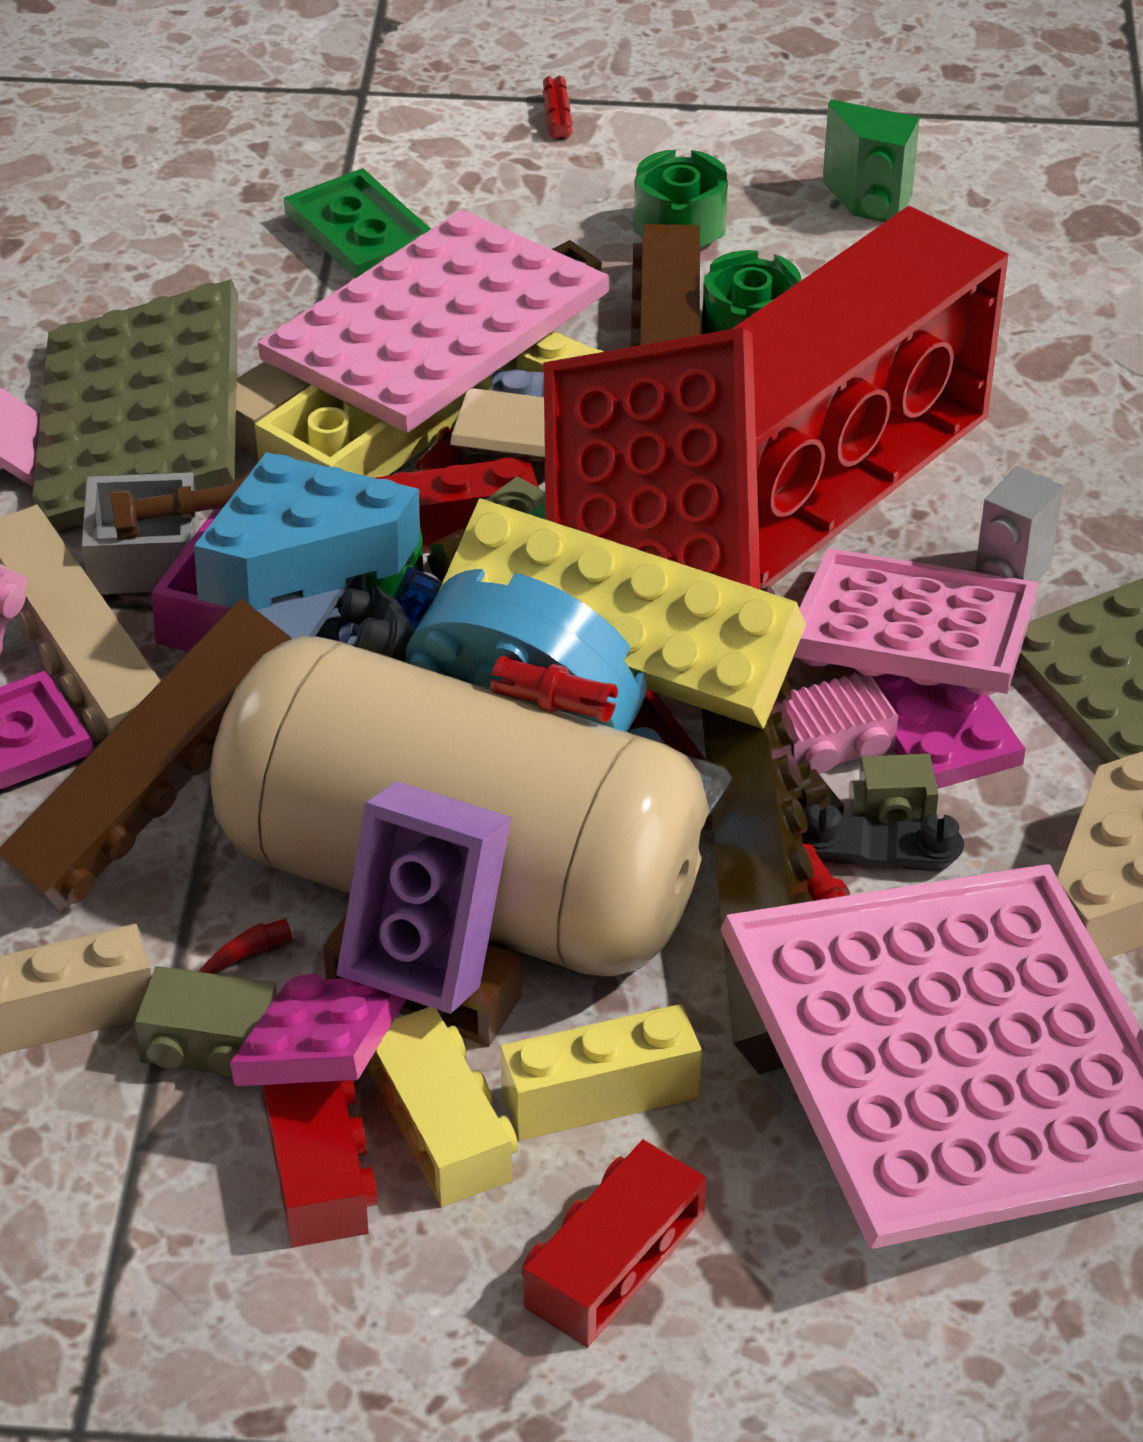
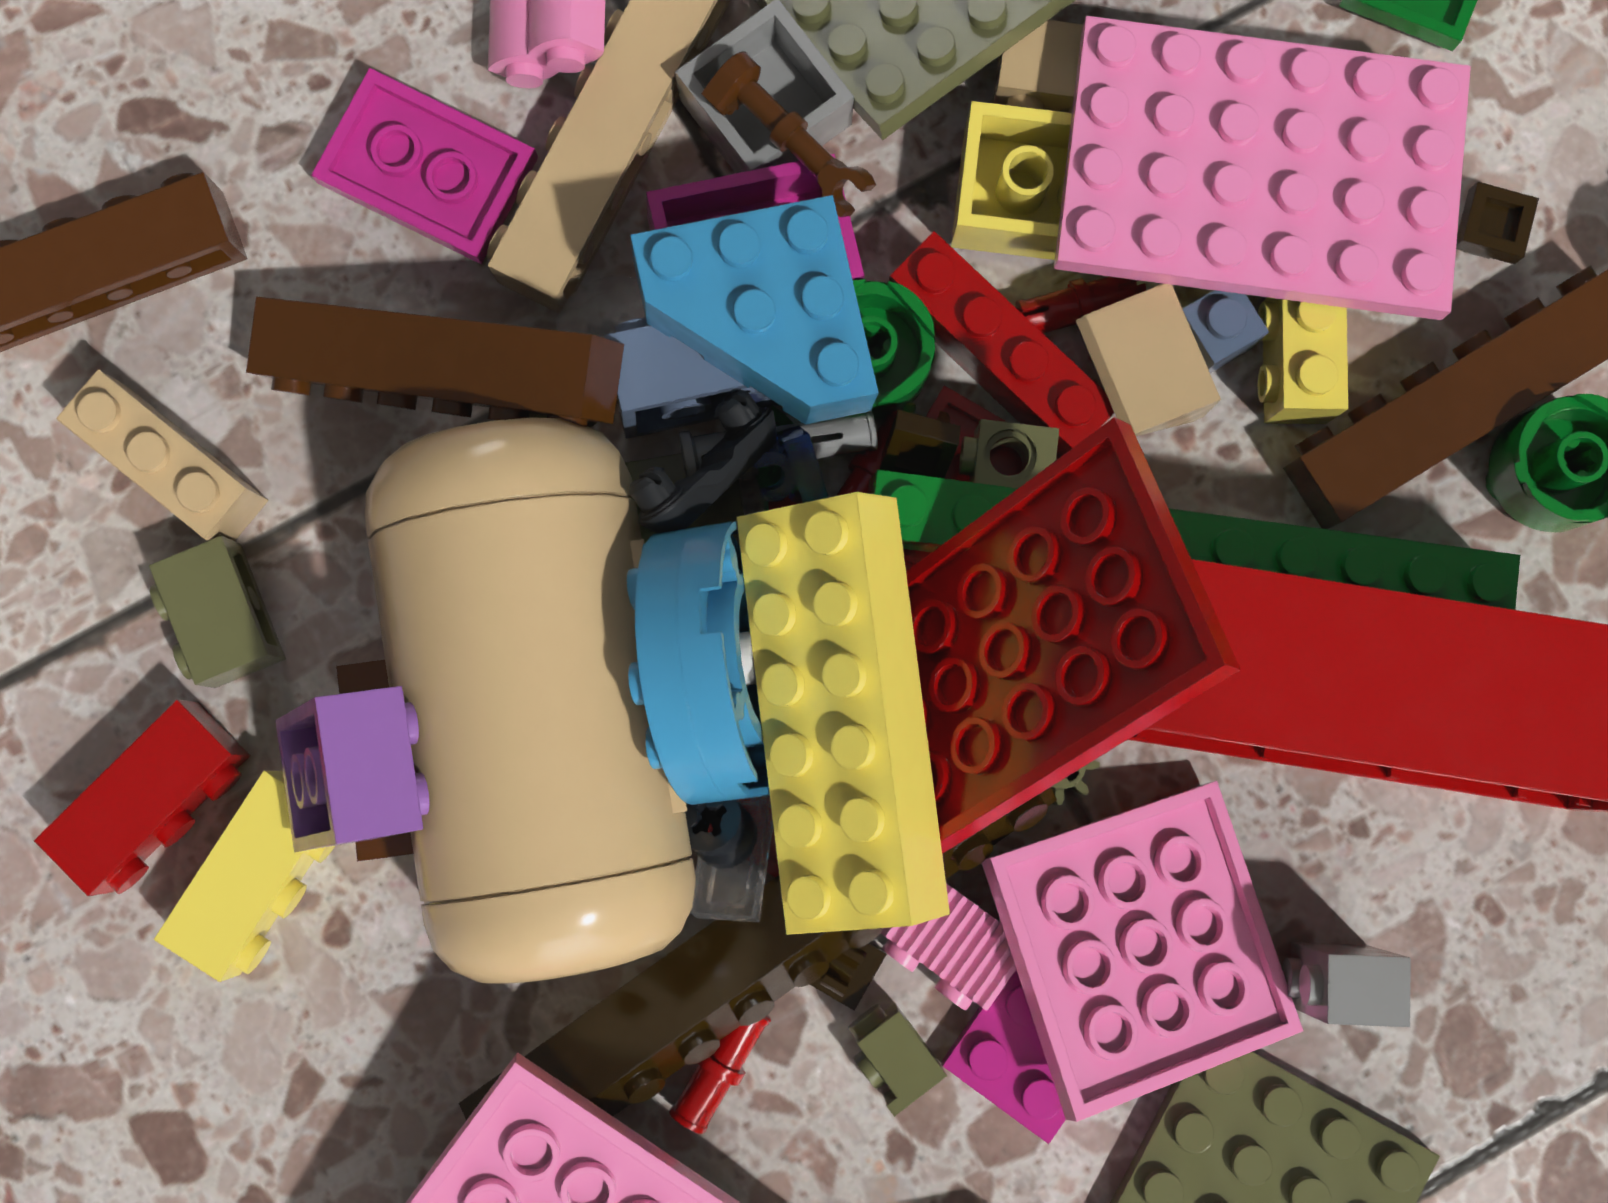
camera: 55 degrees right, 40 degrees up
(249, 943) = (346, 574): red helmet -> none
(316, 1033) = (208, 740): dark pink plate -> none
(554, 688) = (621, 758): red pin -> none
(600, 1071) = (367, 995): light yellow brick -> none
(613, 1242) = (197, 1120): red brick -> none
(897, 844) = (830, 1073): black piece -> none

